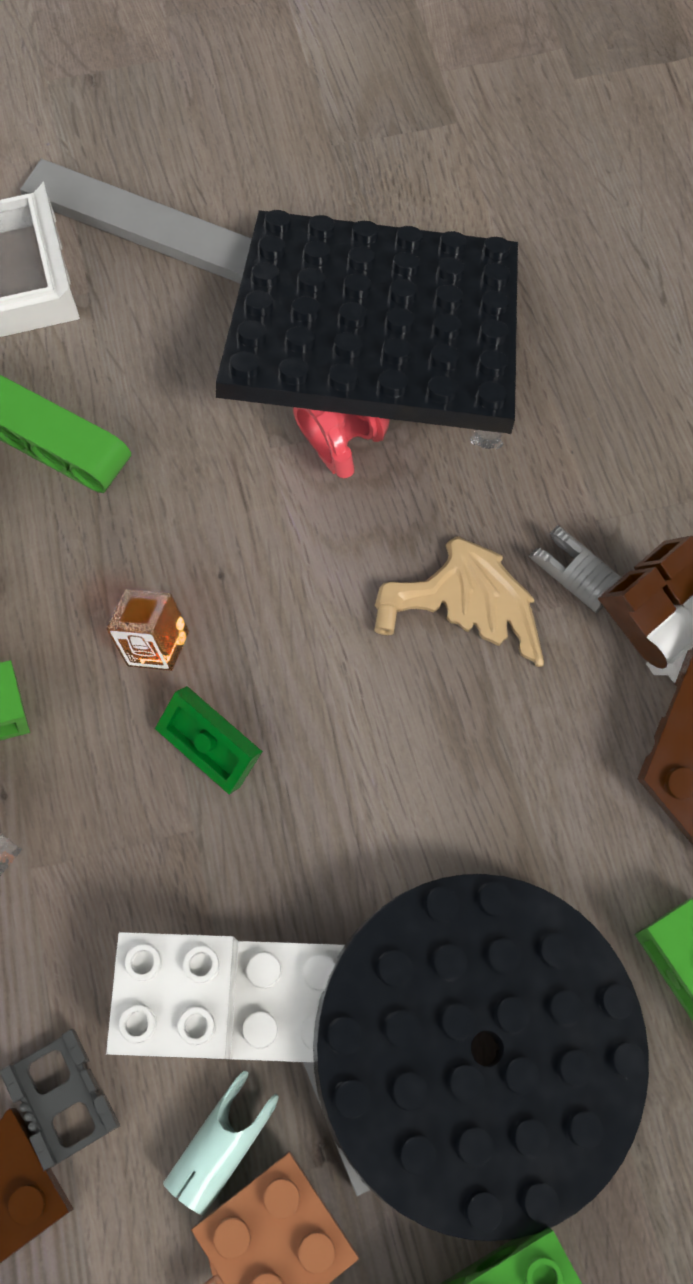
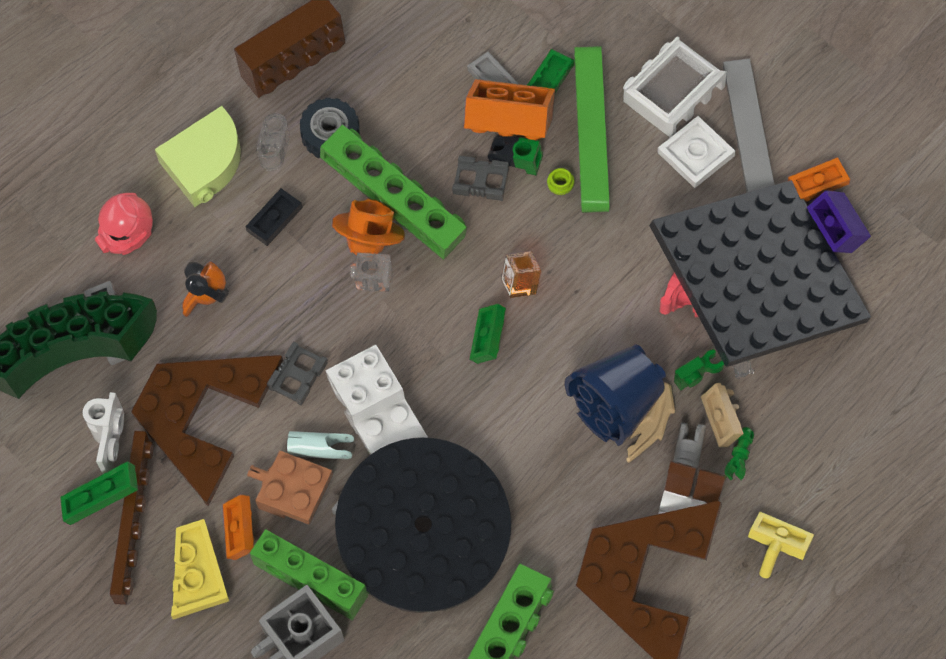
camera: 65 degrees right, 5 degrees down
(29, 480) = (560, 175): none -> lime plate
(126, 296) = (696, 151): none -> white plate
(280, 180) = (821, 178): none -> orange plate
(361, 193) = (838, 221): none -> dark purple brick
(451, 607) = (616, 392): none -> dark blue cone
(464, 497) = (693, 371): none -> green plate
(554, 496) = (722, 414): none -> tan plate
(620, 507) = (740, 454): none -> green piece

